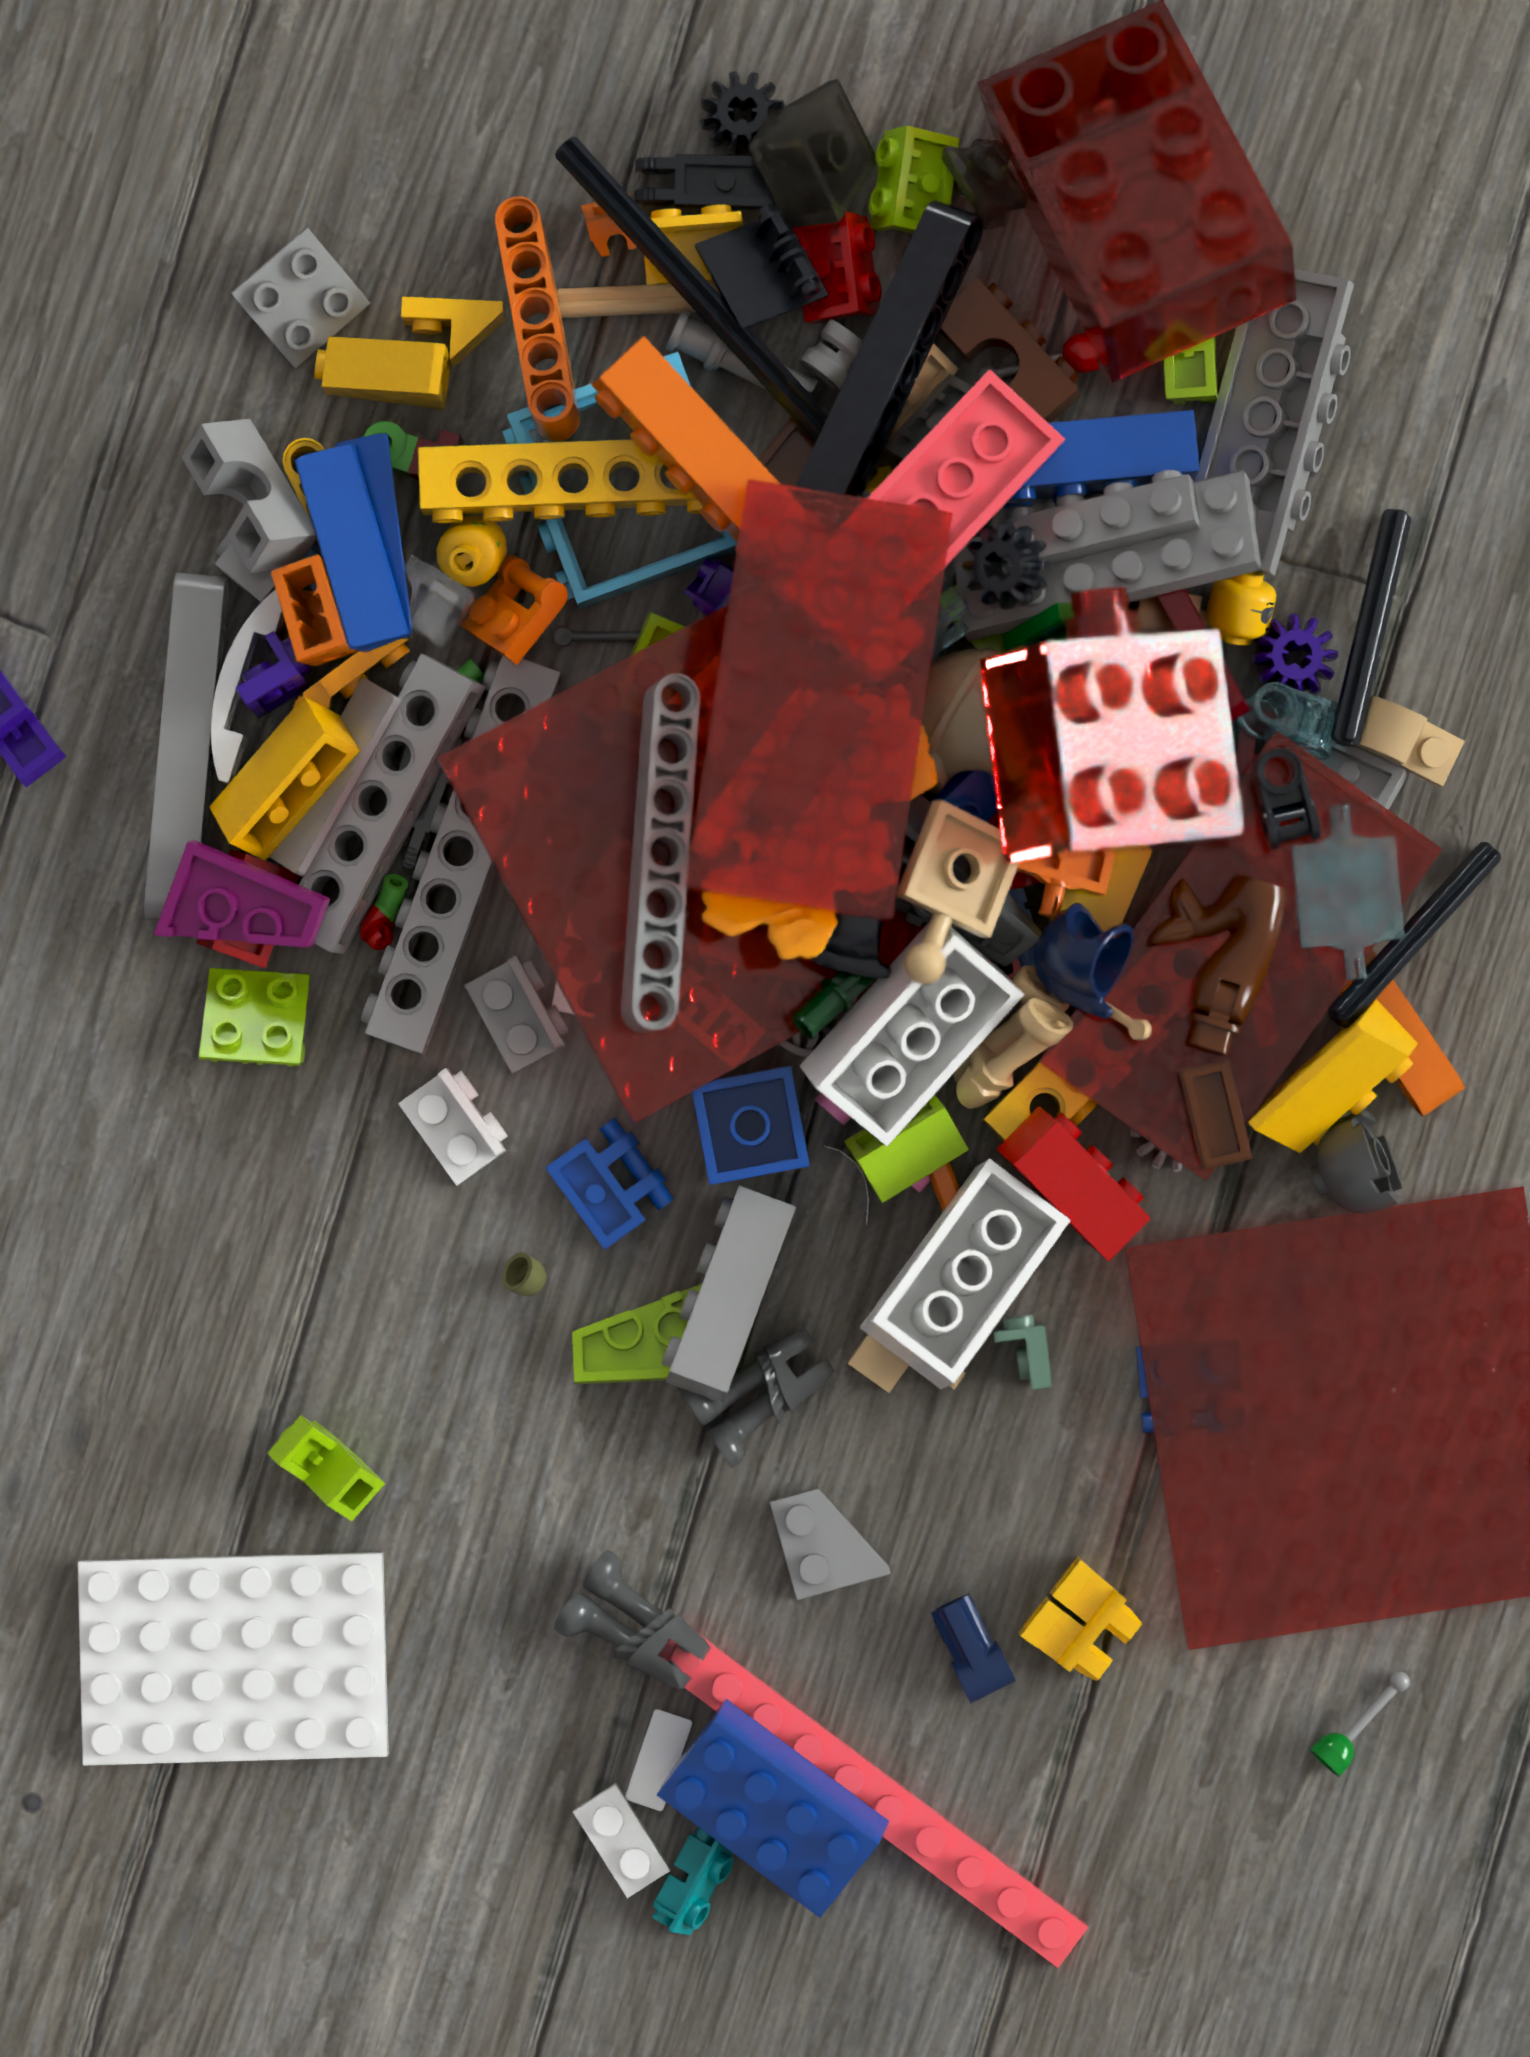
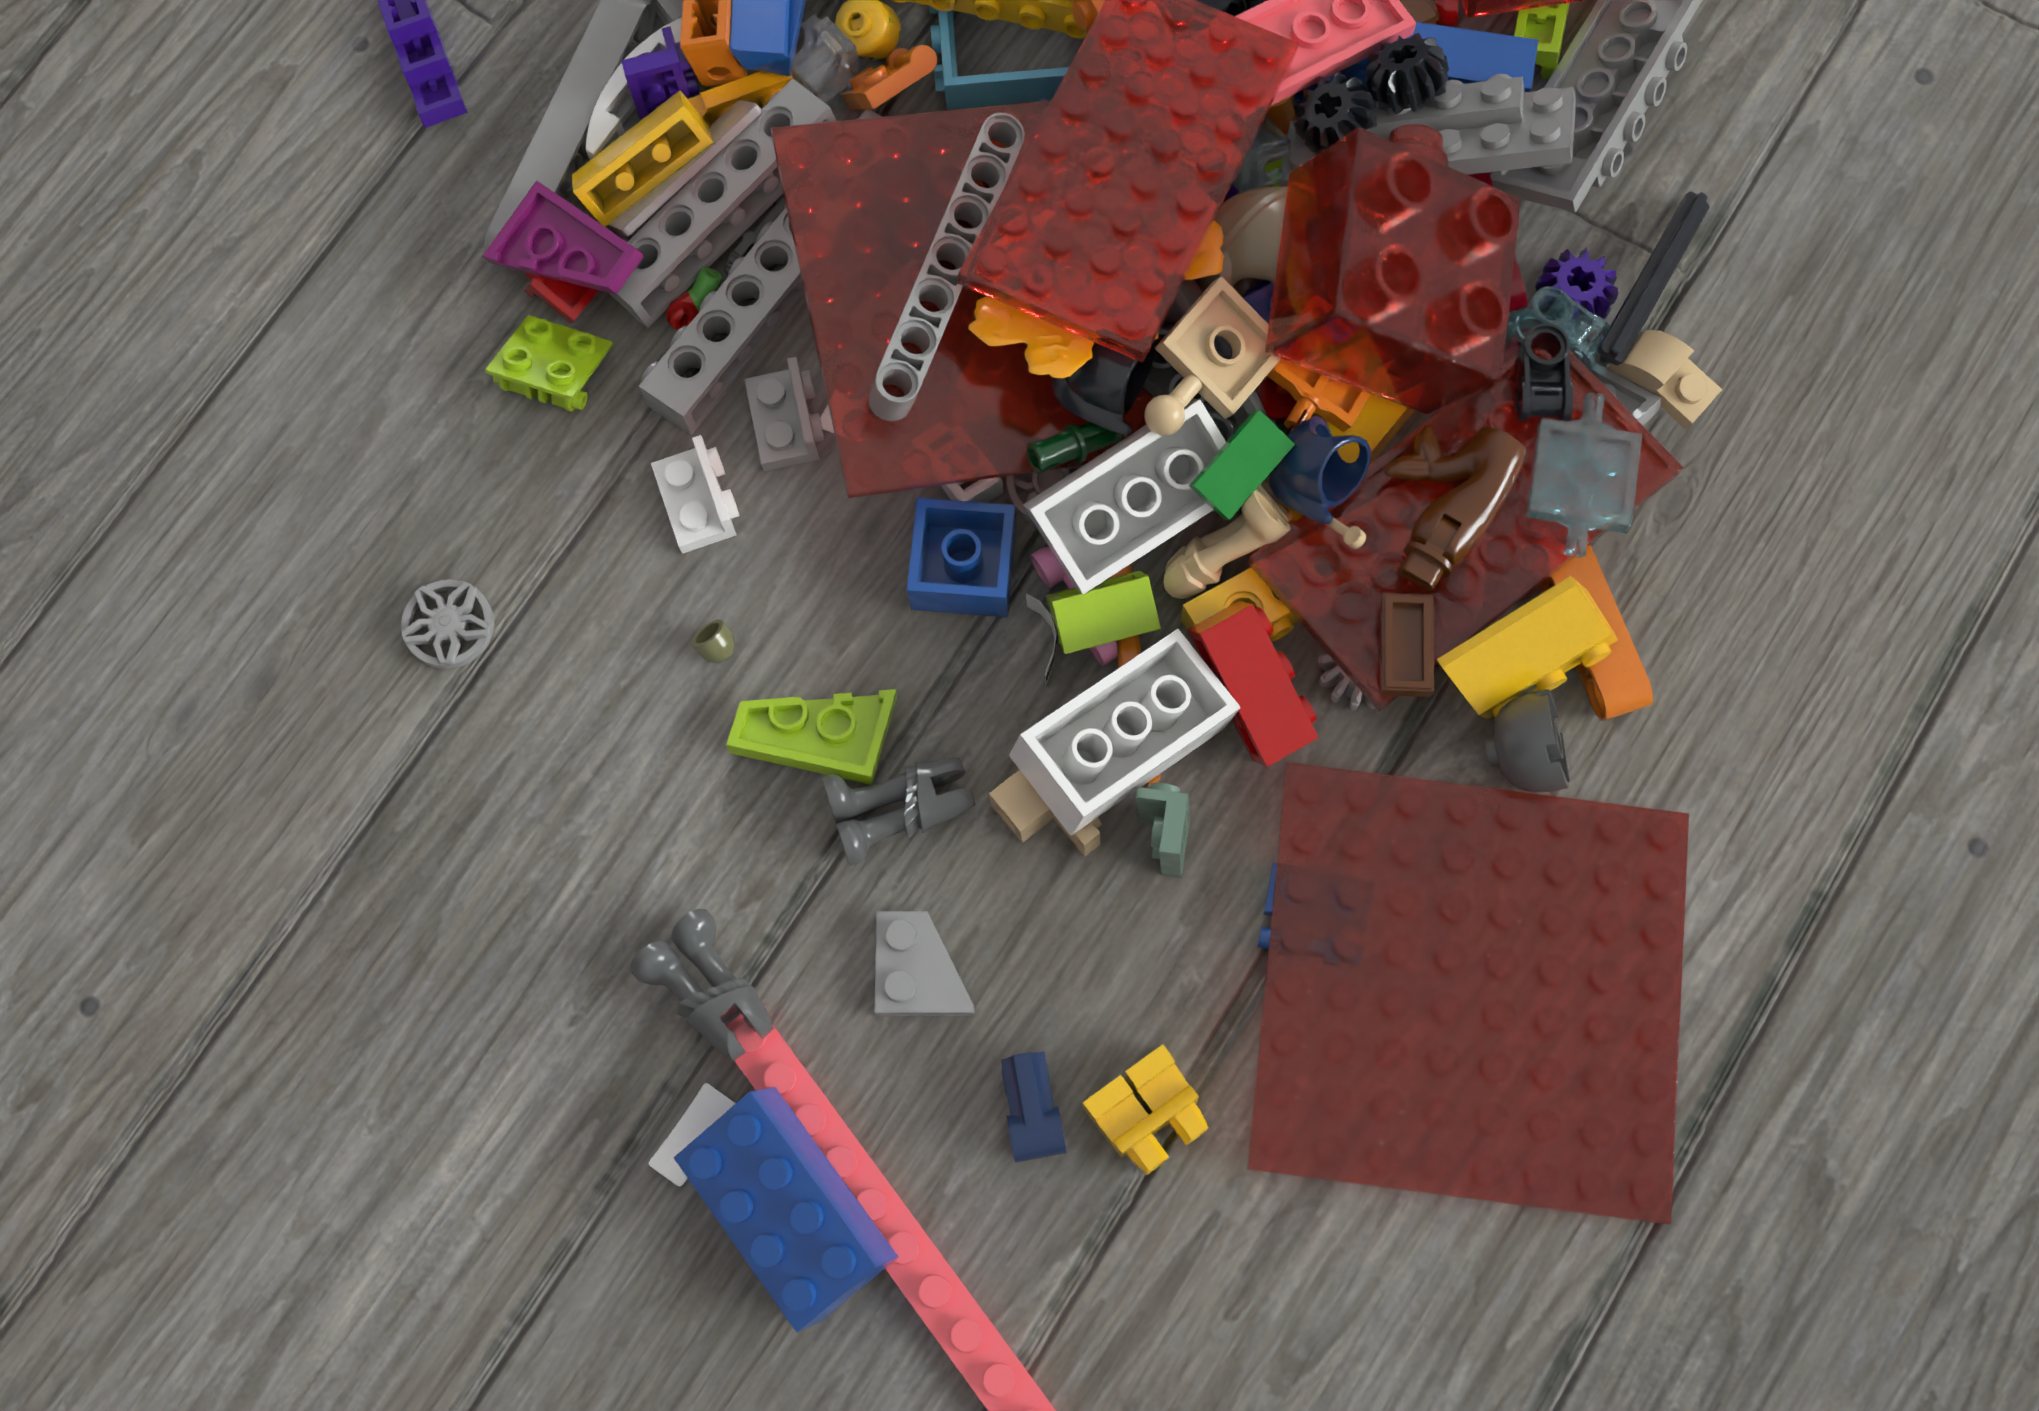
camera: 20 degrees right, 15 degrees down
(233, 1658) = (324, 921): white plate -> none
(246, 1327) = (447, 623): none -> light grey wheel
(326, 1467) = (468, 757): lime brick -> none
(597, 1193) = (804, 588): blue plate -> none
(621, 1840) = (630, 1203): white plate -> none
(686, 1904) = (672, 1285): teal hinge -> none
(729, 1295) = (894, 700): light grey brick -> none
(1011, 984) = (1241, 464): none -> green tile
(1069, 503) = (1407, 73): none -> black gear
(1241, 607) = (1541, 231): yellow head -> none
(1336, 1749) = (1374, 1318): hinge -> none
(1417, 933) = (1641, 542): black axle -> none

